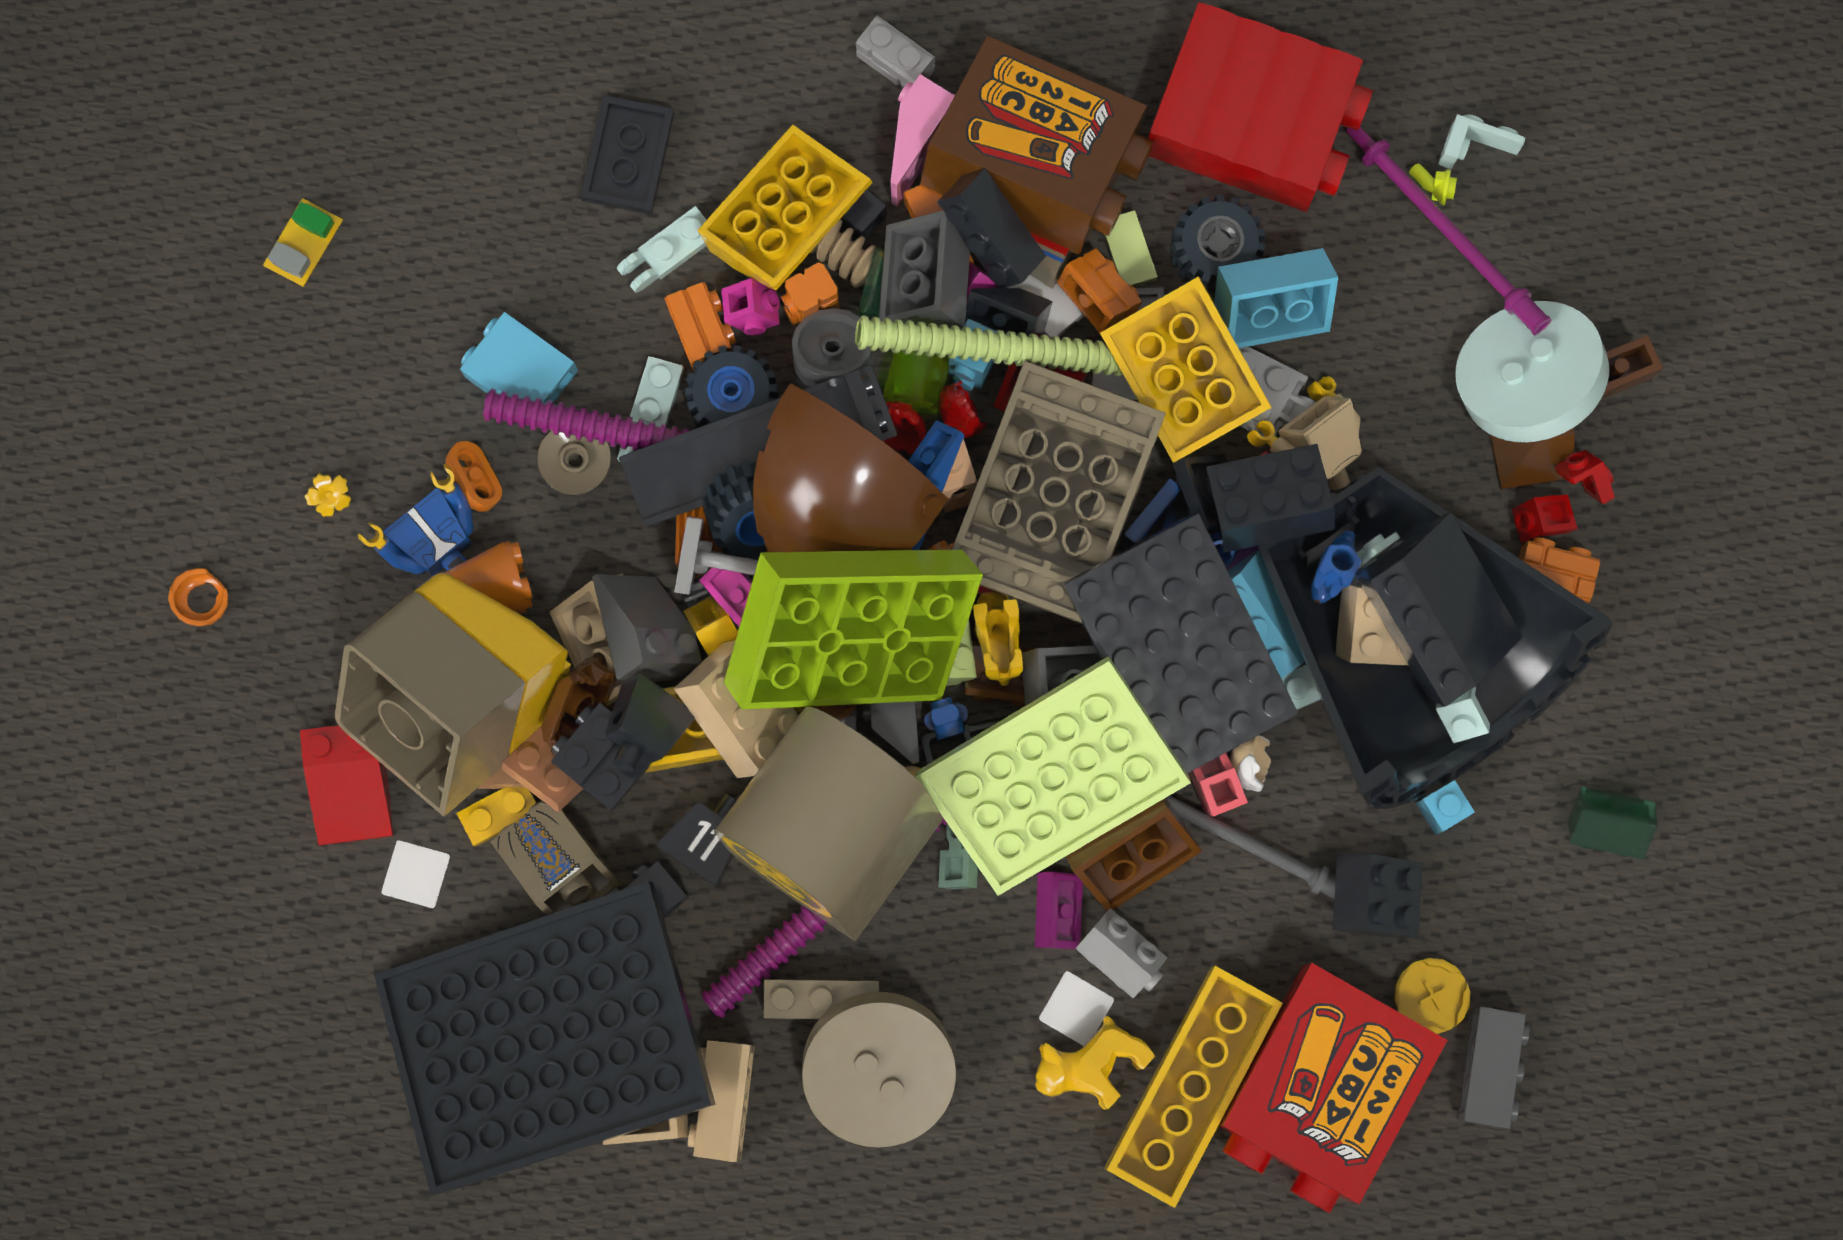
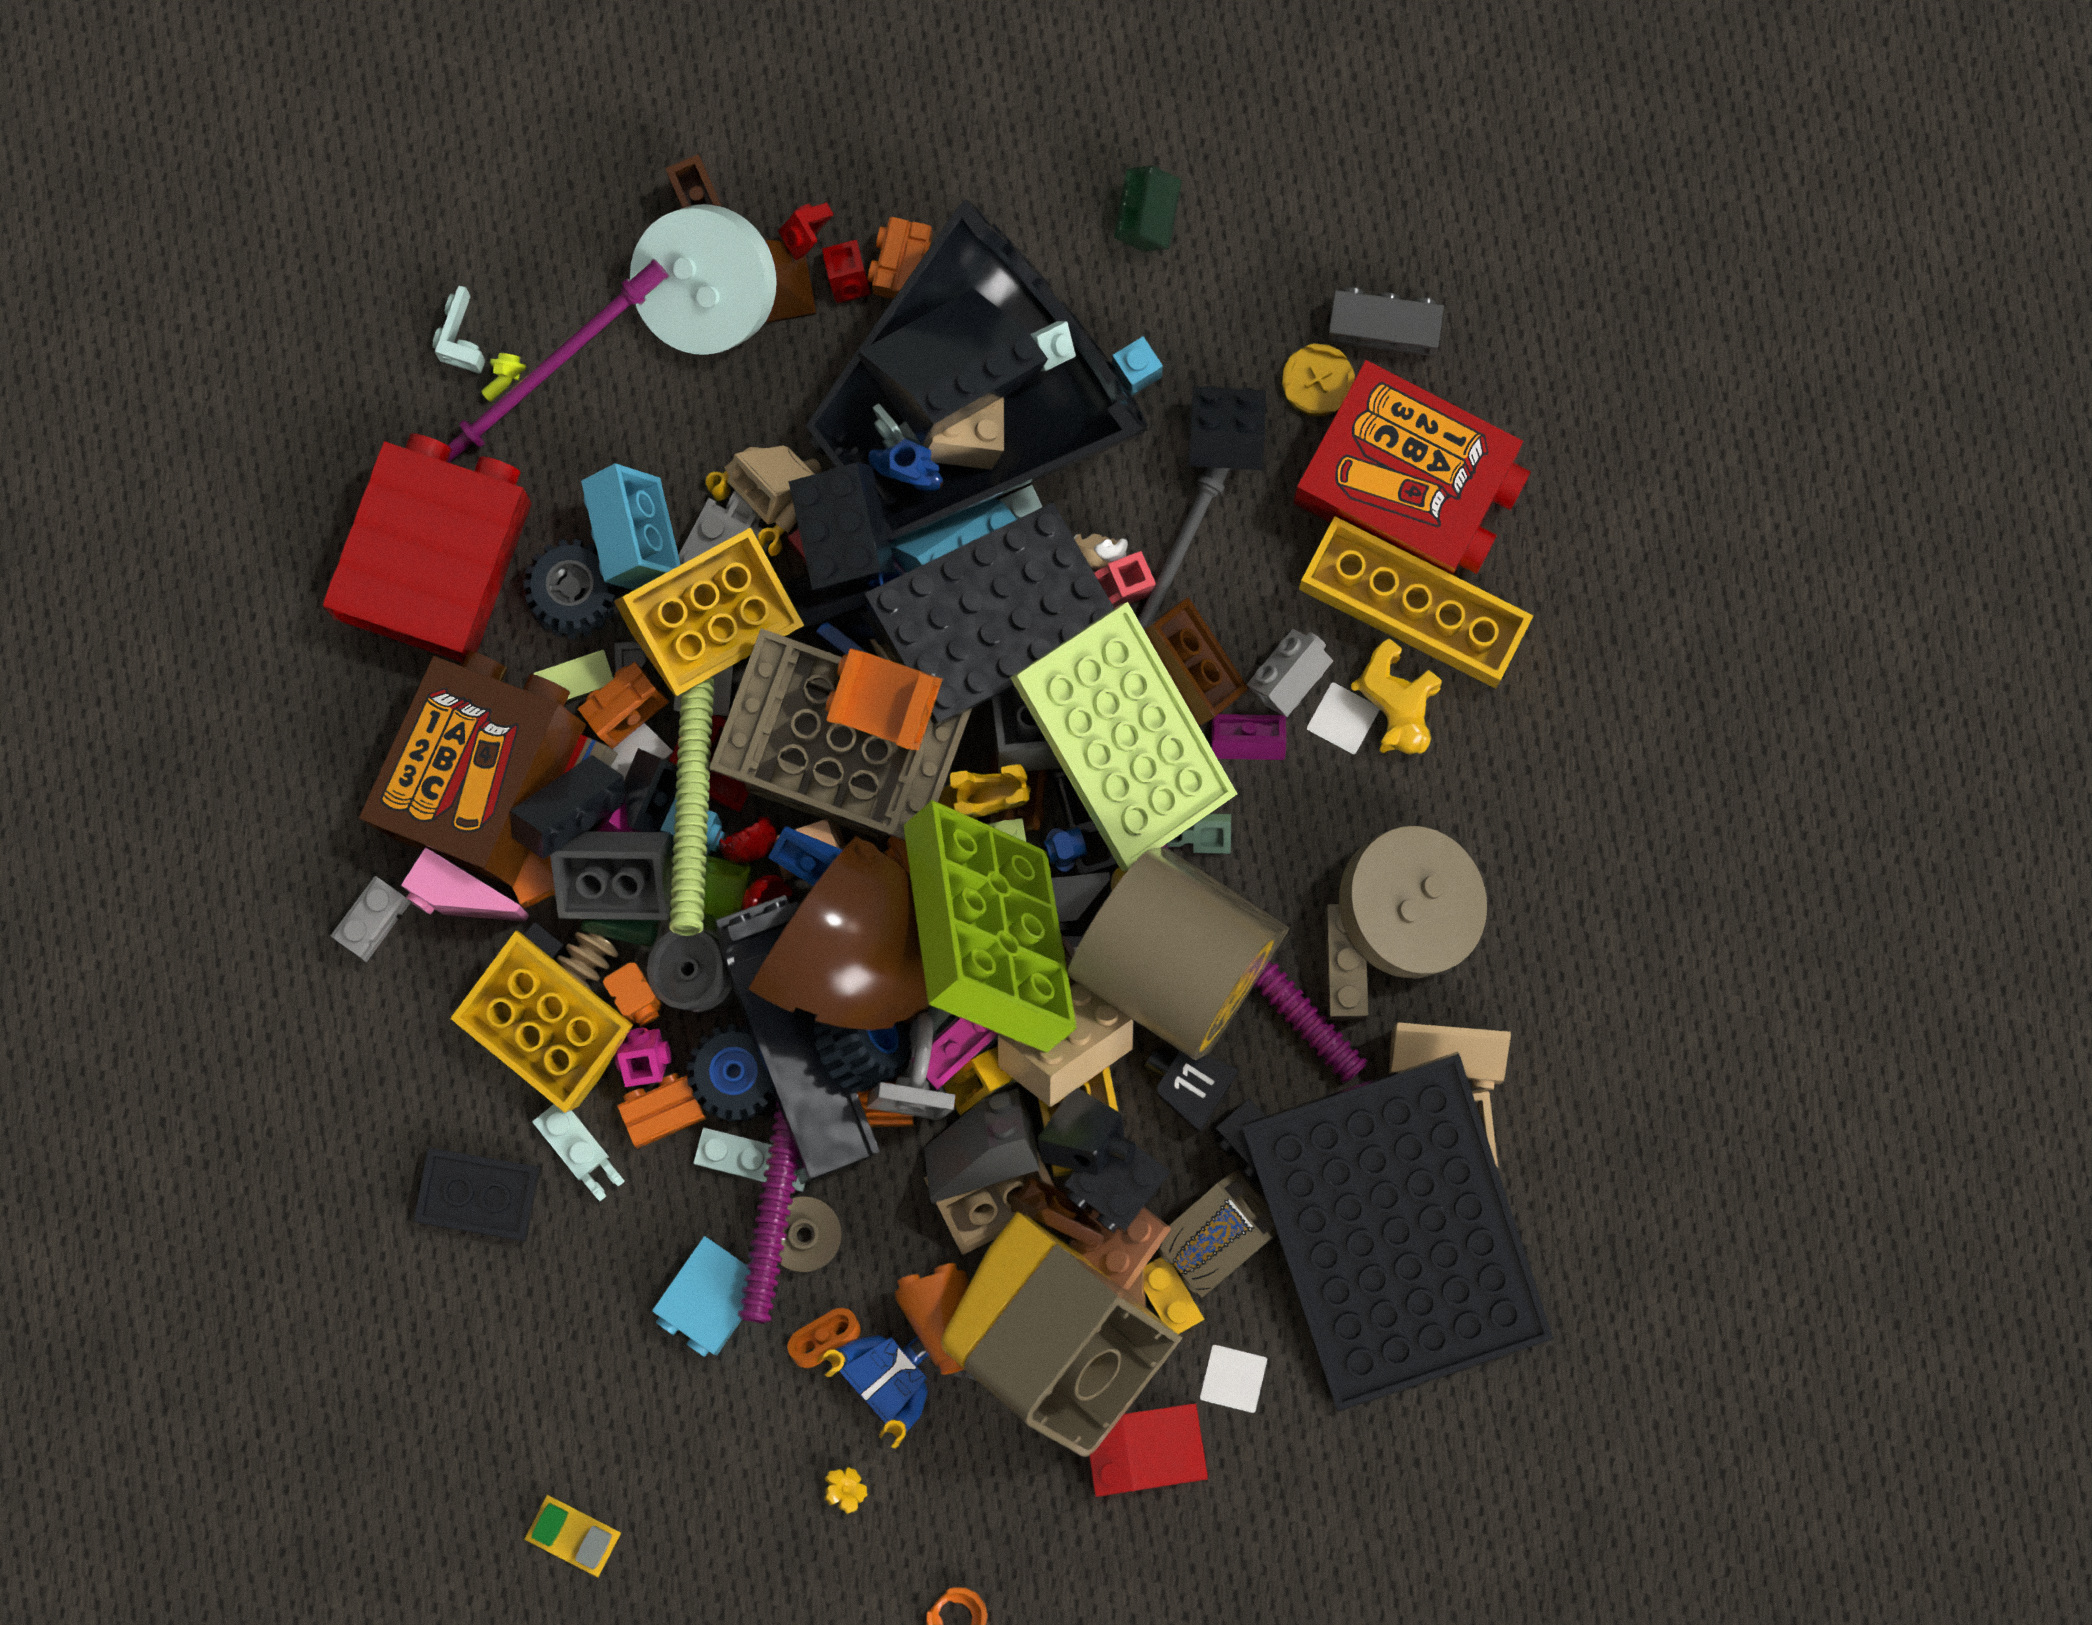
camera: 90 degrees left, 0 degrees up
(1089, 529) = (883, 698): none -> orange panel

